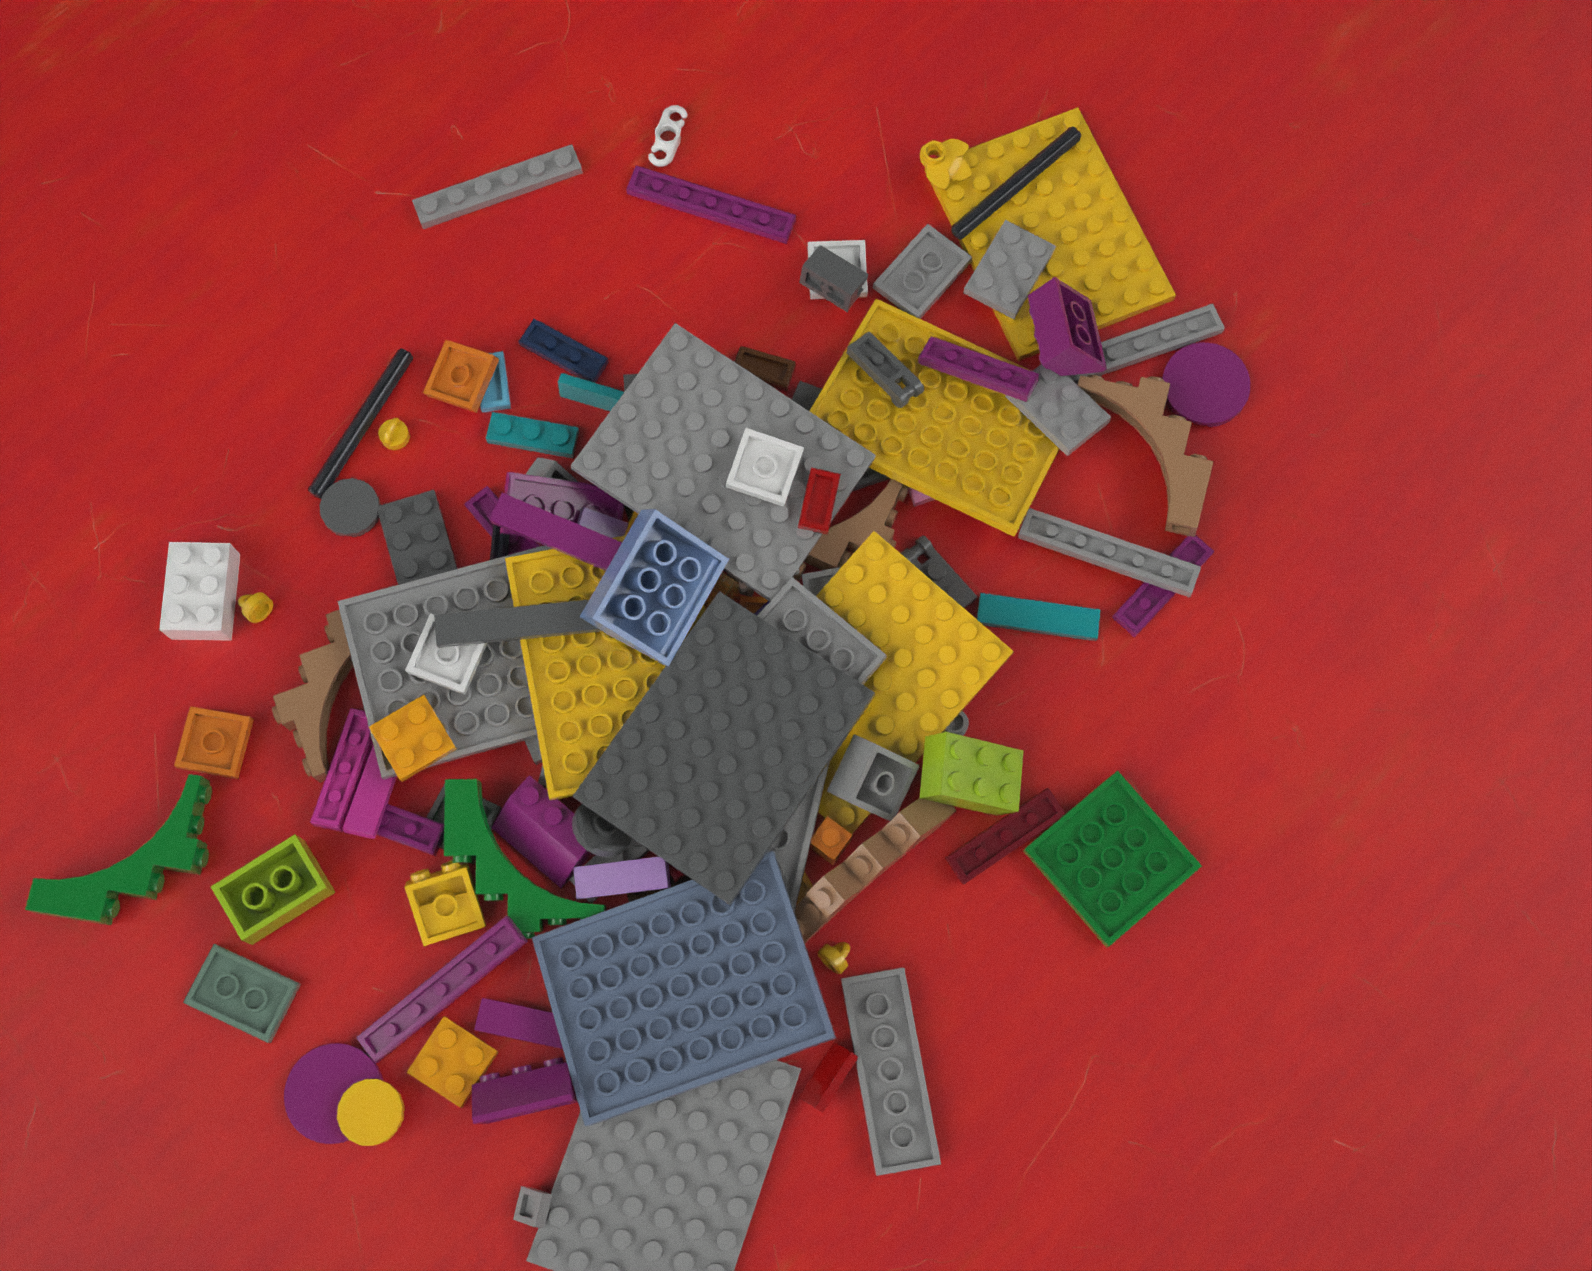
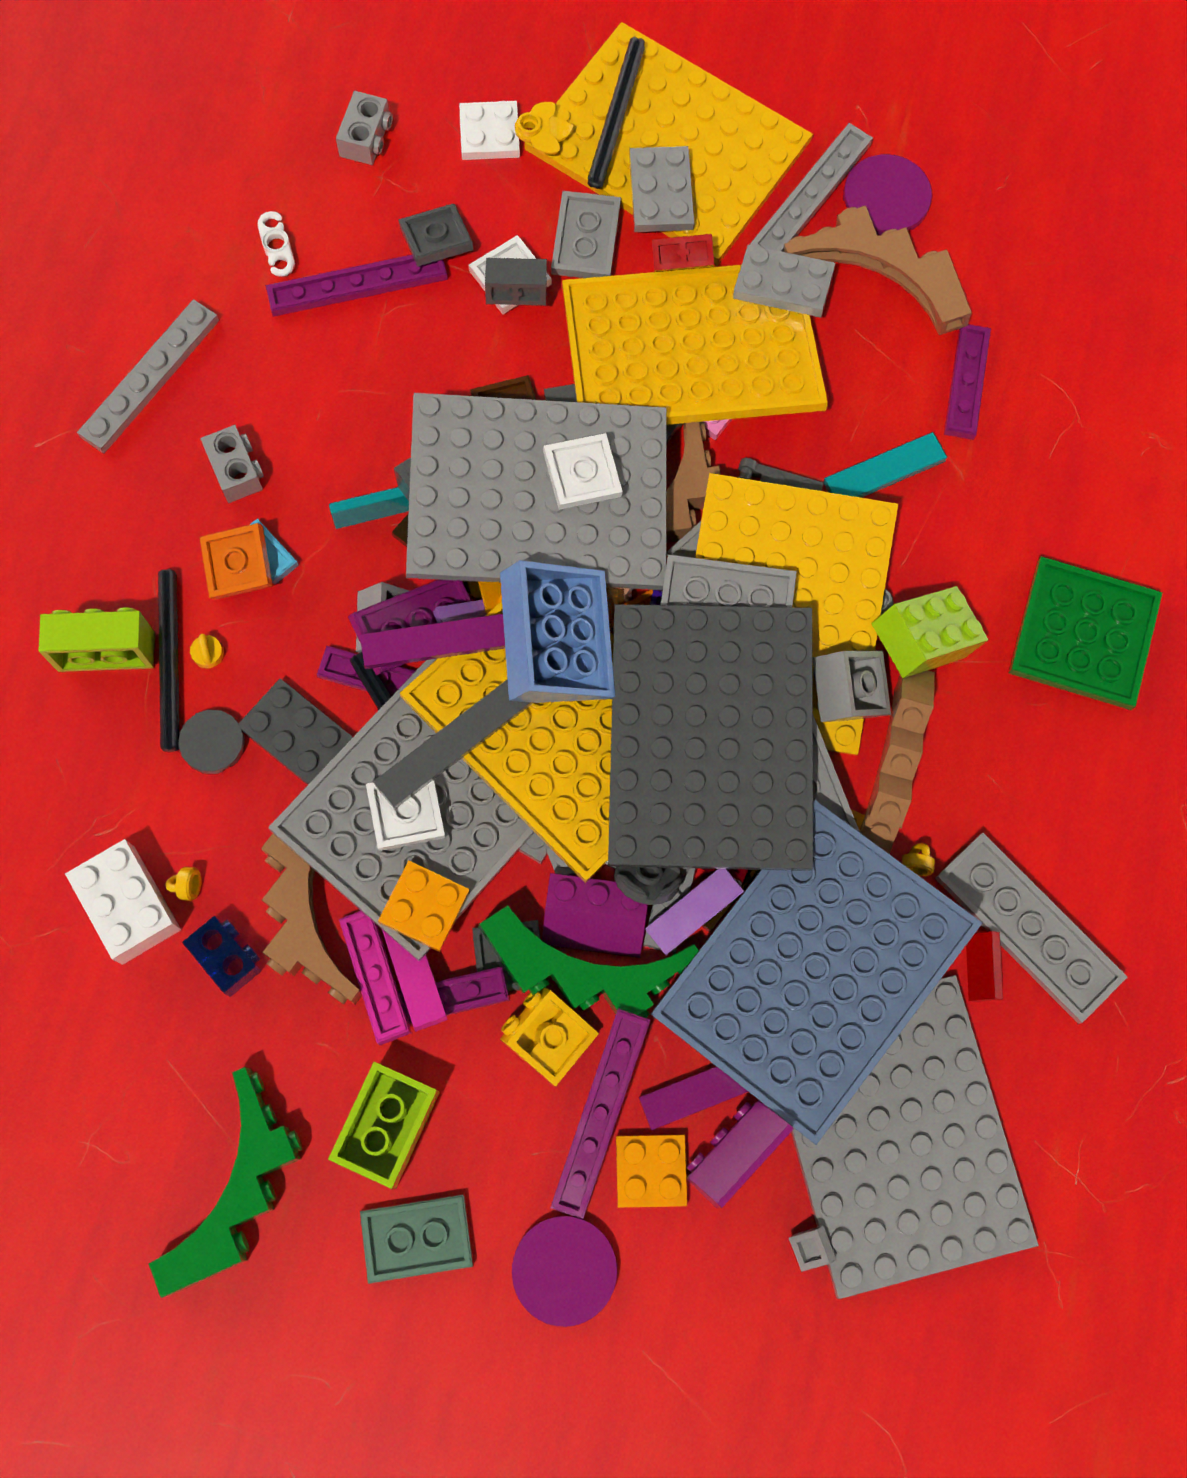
camera: 35 degrees left, 0 degrees up
(214, 742) = (232, 1031): orange plate -> none
(237, 682) = (217, 961): none -> clear blue brick
(314, 374) = (96, 640): none -> lime brick
(370, 1112) = (612, 1264): yellow tile -> none
(506, 295) = (230, 464): none -> light grey brick
(532, 435) = (336, 577): teal plate -> none
(563, 351) = (312, 486): dark blue tile -> none
(796, 75) = (366, 121): none -> light grey brick
(799, 201) = (435, 234): none -> dark grey tile
(819, 500) = (647, 473): red tile -> none
(830, 840) = (849, 763): orange brick -> none
(885, 369) = (618, 332): dark grey plate -> none
(902, 137) = (489, 130): none -> white plate
(978, 369) = (697, 286): magenta tile -> none
(988, 334) = (683, 253): none -> red hinge
(1005, 836) = (987, 670): dark red plate -> none
(1066, 330) = (747, 211): magenta slope -> none
(1109, 552) = (912, 378): light grey plate -> none

